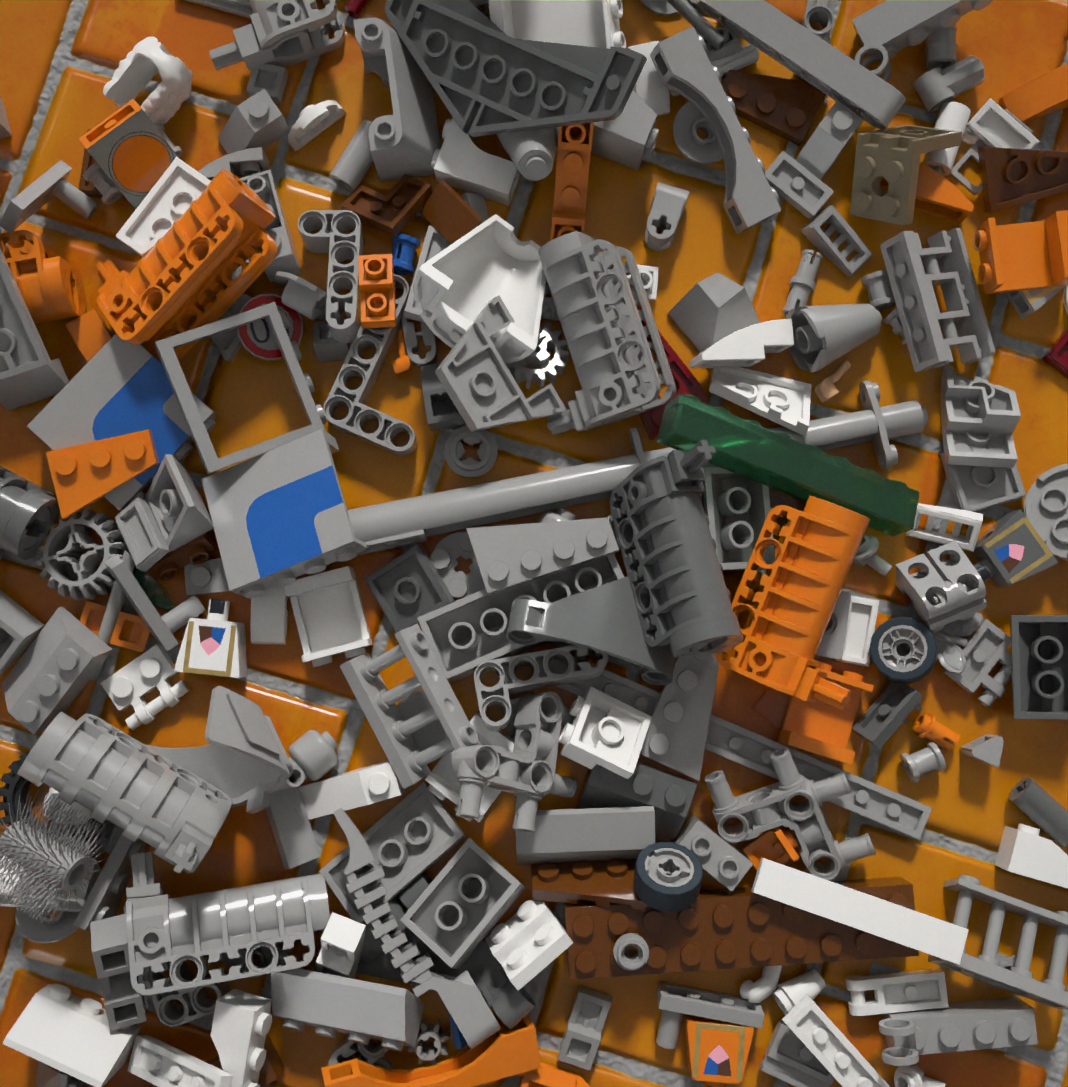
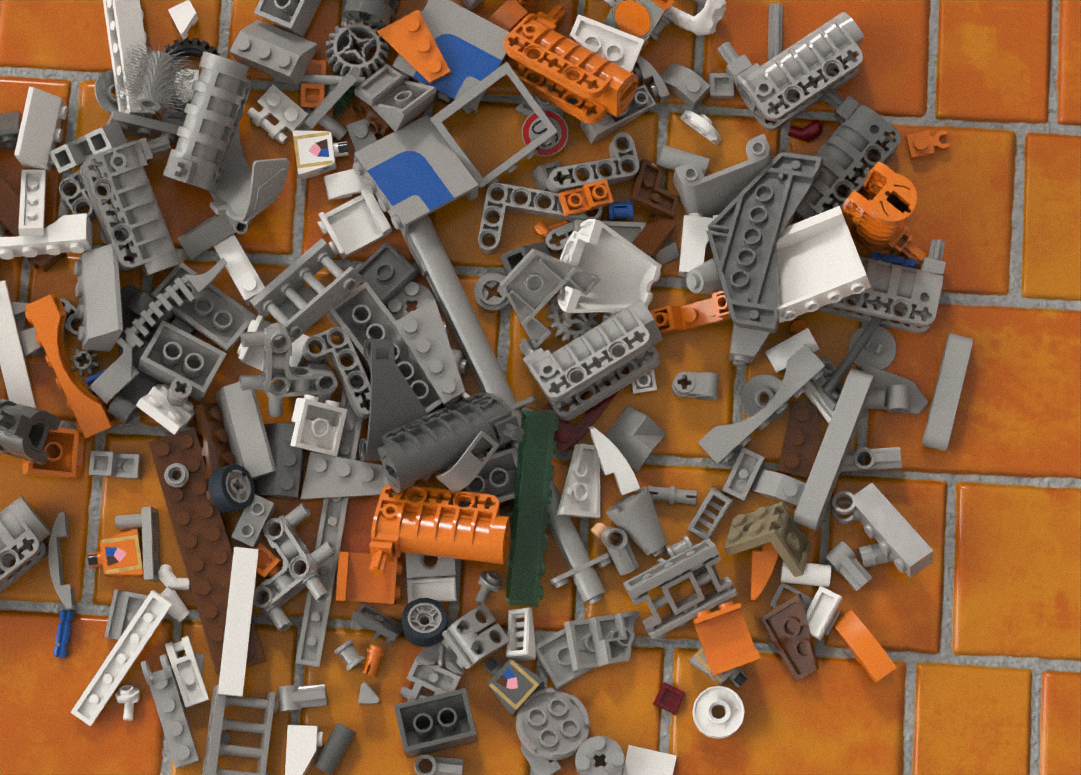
camera: 80 degrees right, 5 degrees down
(302, 296) = (570, 149): light grey panel -> none
(314, 753) = (258, 237): light grey head -> none
(341, 947) = (138, 285): white slope -> none
(501, 917) = (183, 390): none -> light grey bush
(725, 533) = (467, 466): none -> light grey piece
(863, 367) = (620, 551): none -> light grey piece
(964, 849) = (296, 697): none -> light grey piece

